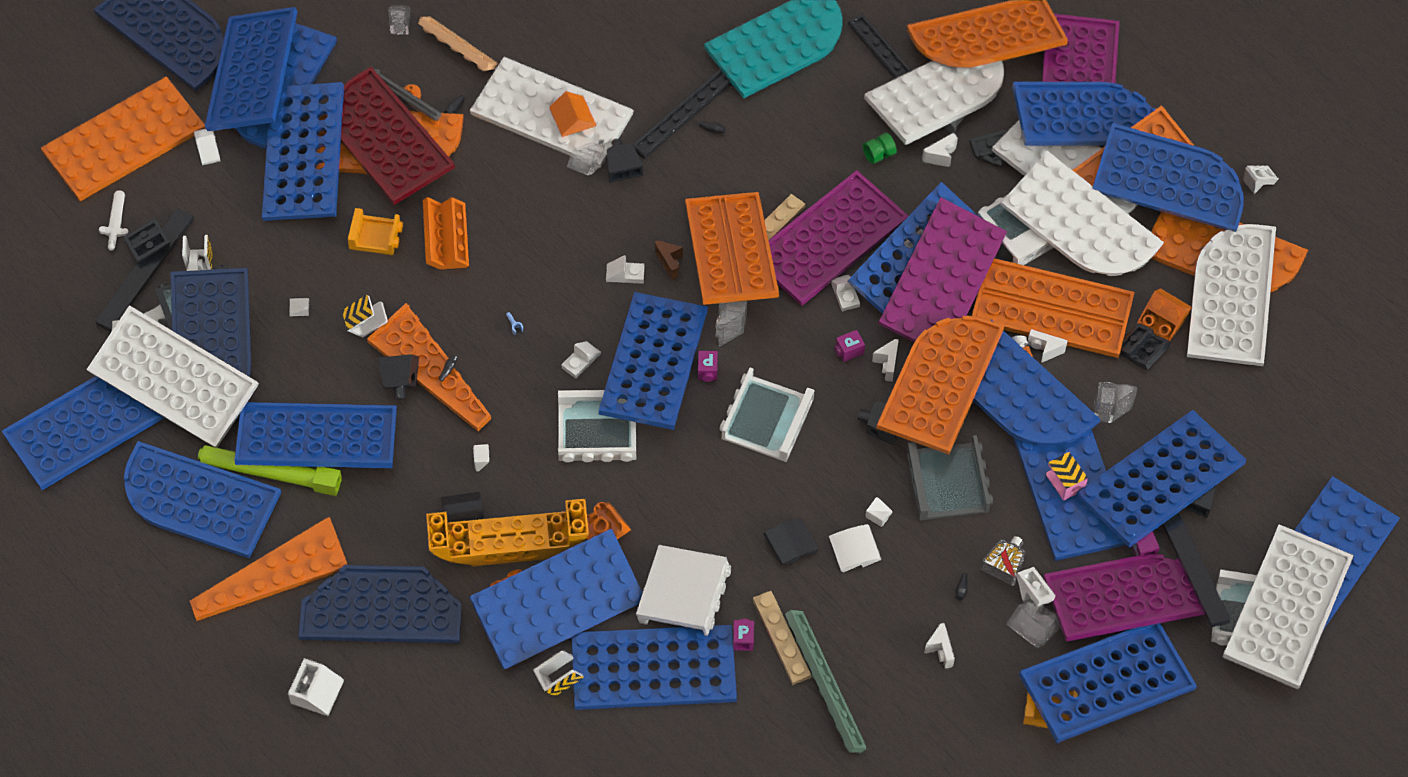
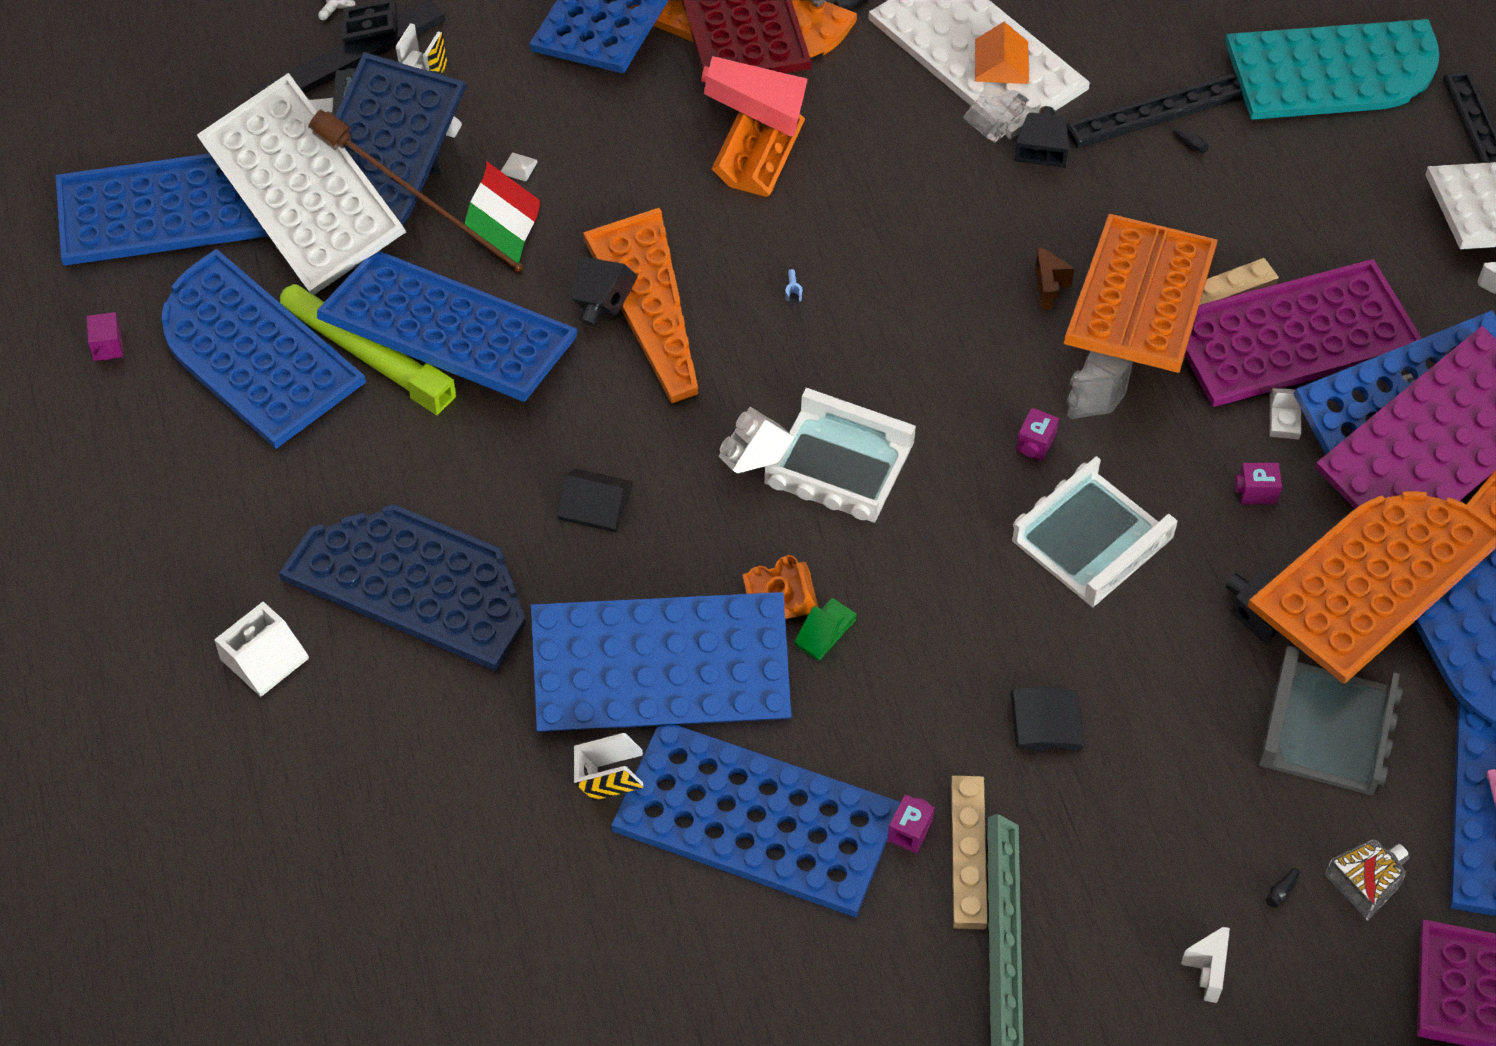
camera: 25 degrees right, 5 degrees down
(99, 528) = (104, 336): none -> magenta brick
(295, 563) = (324, 479): orange wing -> none
(305, 345) = (496, 216): none -> flag
(363, 318) = (593, 207): piece -> none
(374, 233) = (663, 112): light orange panel -> none
(433, 200) = (757, 92): none -> coral slope
(448, 367) = (672, 304): black piece -> none
(481, 456) = (656, 434): white slope -> none
(508, 537) = (626, 551): light orange slope -> none
(545, 439) = (754, 442): none -> white slope
(581, 359) = (862, 363): white slope -> none
(625, 272) = (975, 274): white slope -> none
(639, 538) = (824, 628): none -> green slope
(660, 369) = (943, 398): blue piece -> none
(684, 588) = (853, 721): white panel -> none
(855, 547) = (1140, 765): white slope -> none
(878, 512) = (1199, 728): white slope -> none
(879, 148) = (1423, 242): green wheel -> none
(887, 356) = (1309, 518): white slope -> none
(1034, 587) = (1398, 932): white slope -> none
(1034, 623) = (1377, 987): clear slope -> none

